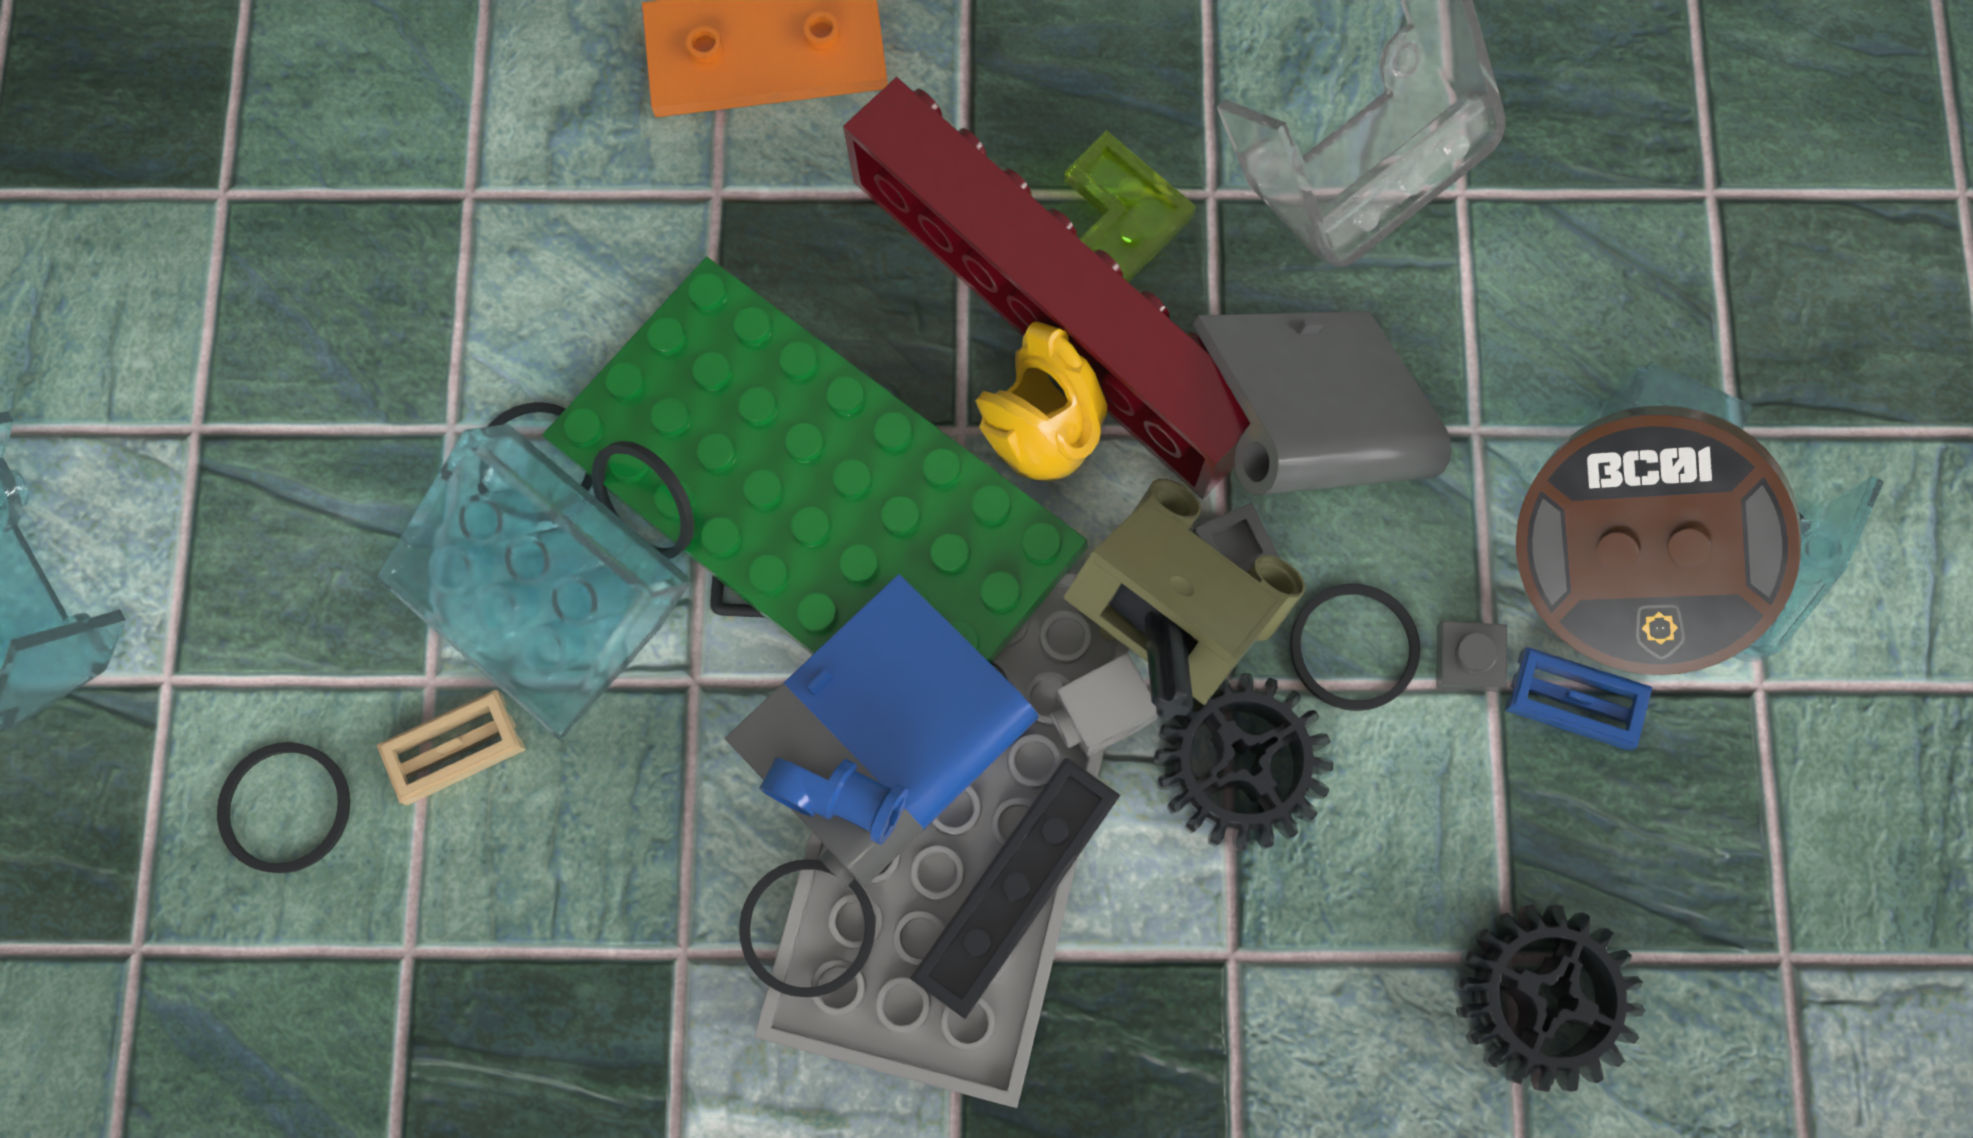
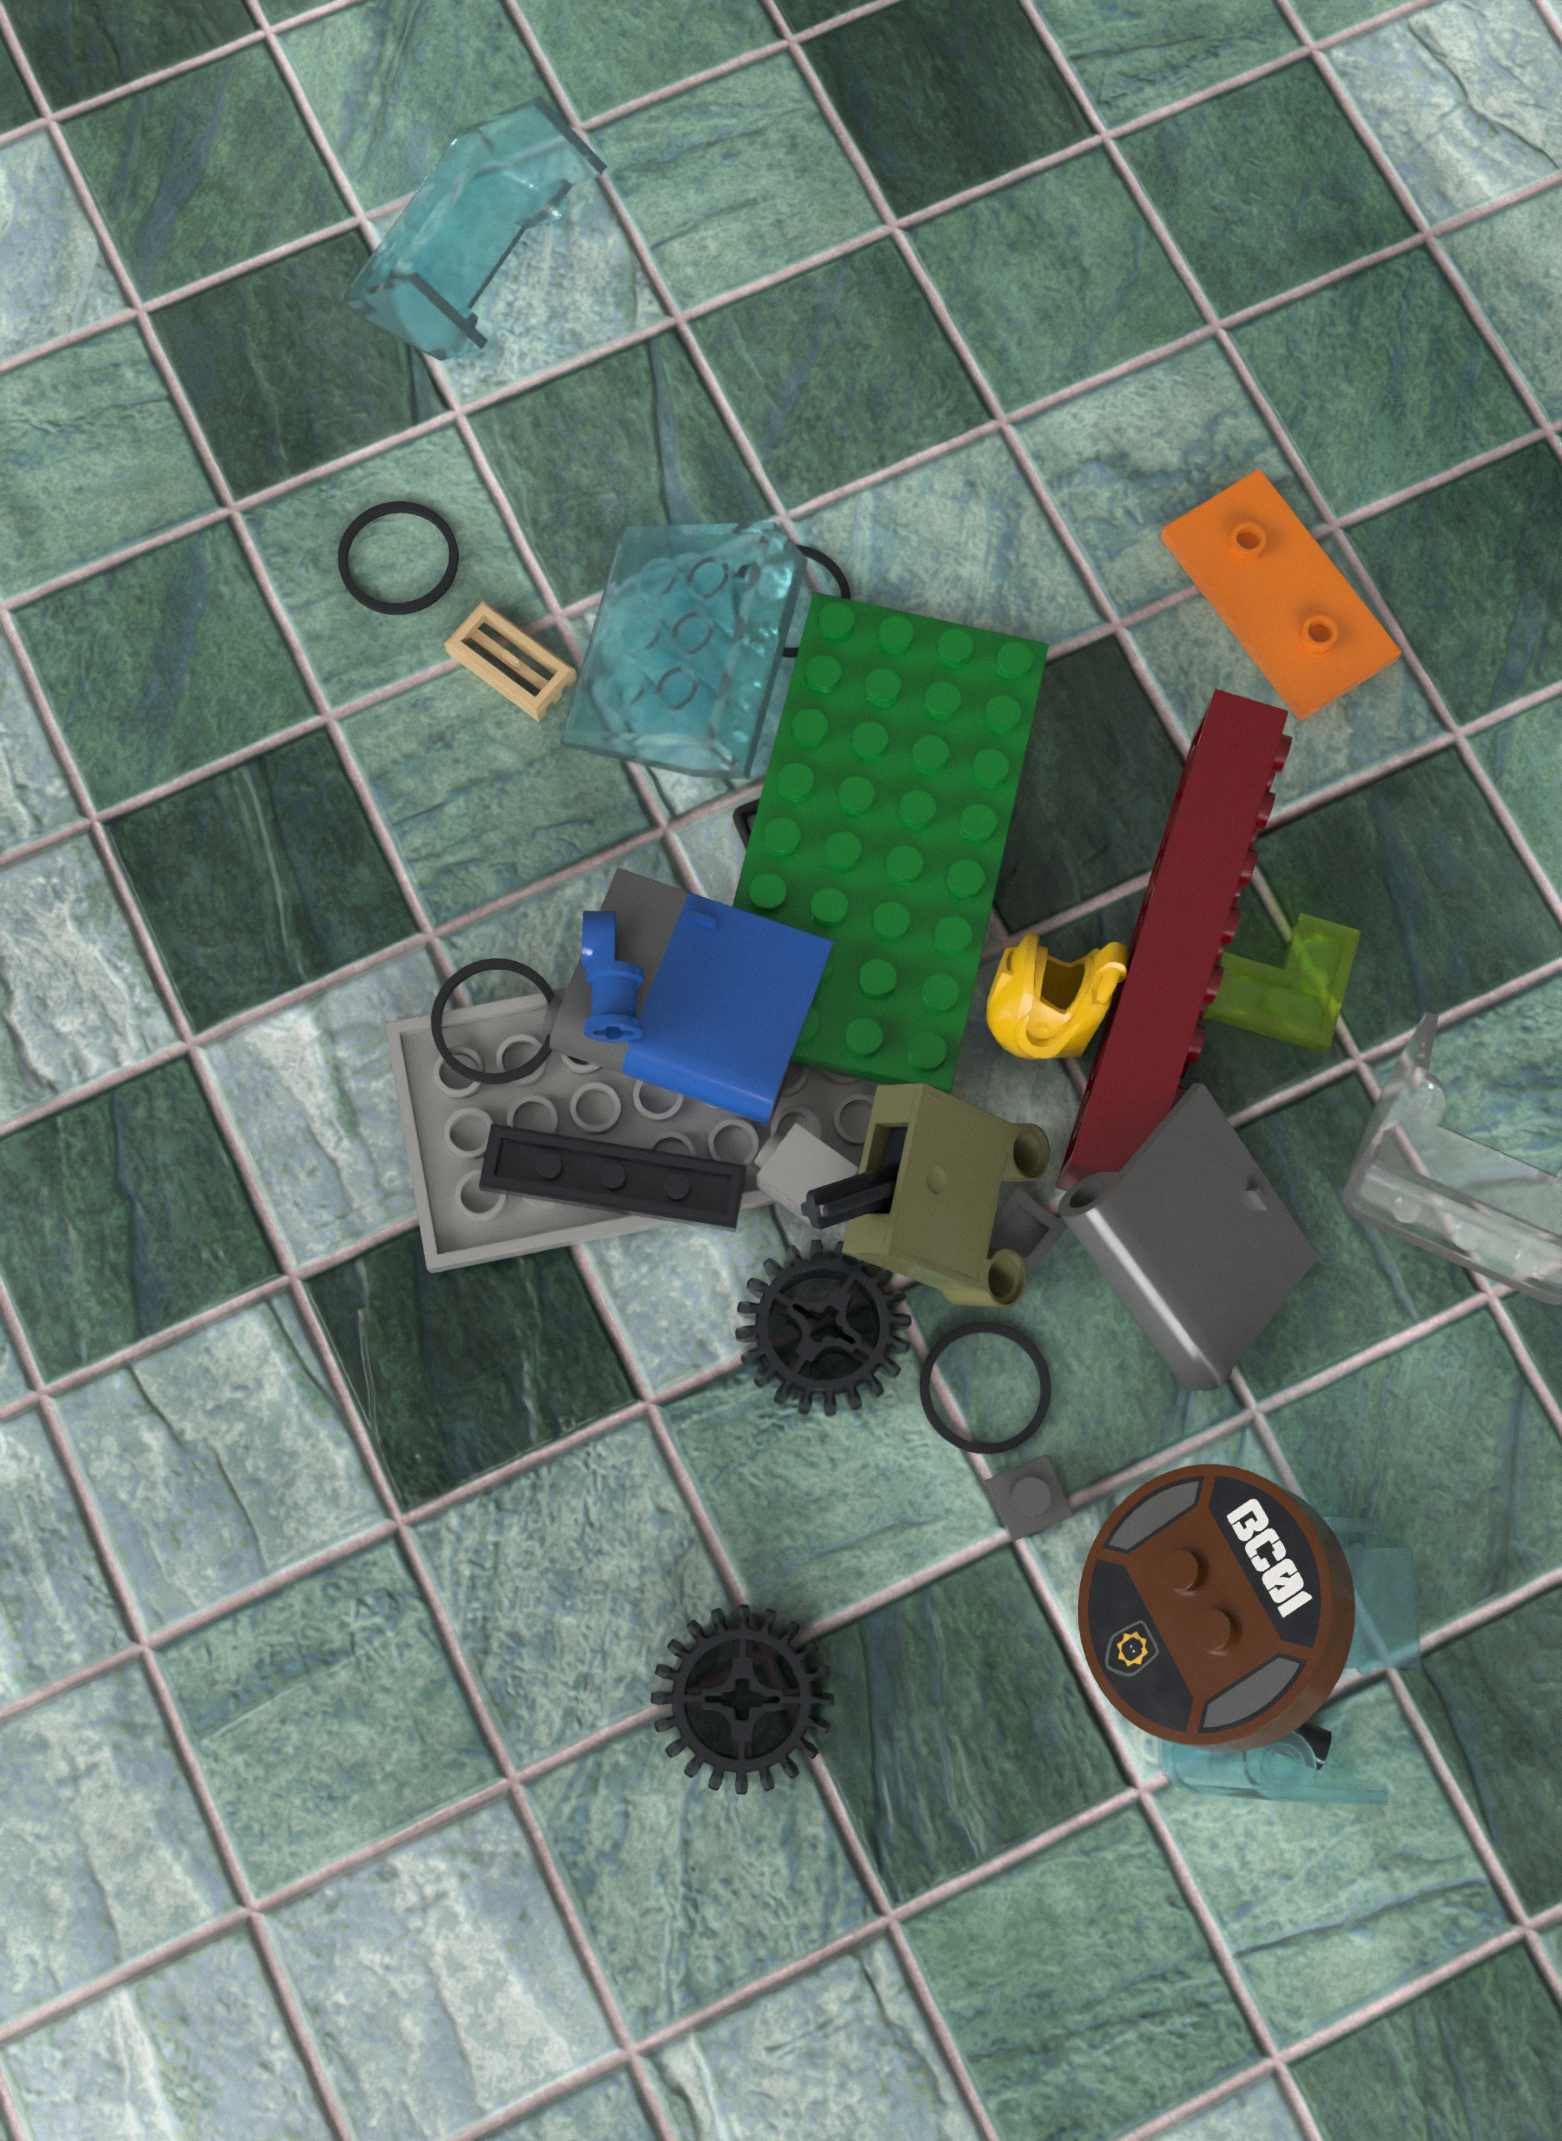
camera: 60 degrees right, 0 degrees up
(664, 472) = (818, 706): black piece -> none
(1525, 683) = (1066, 1619): blue tile -> none

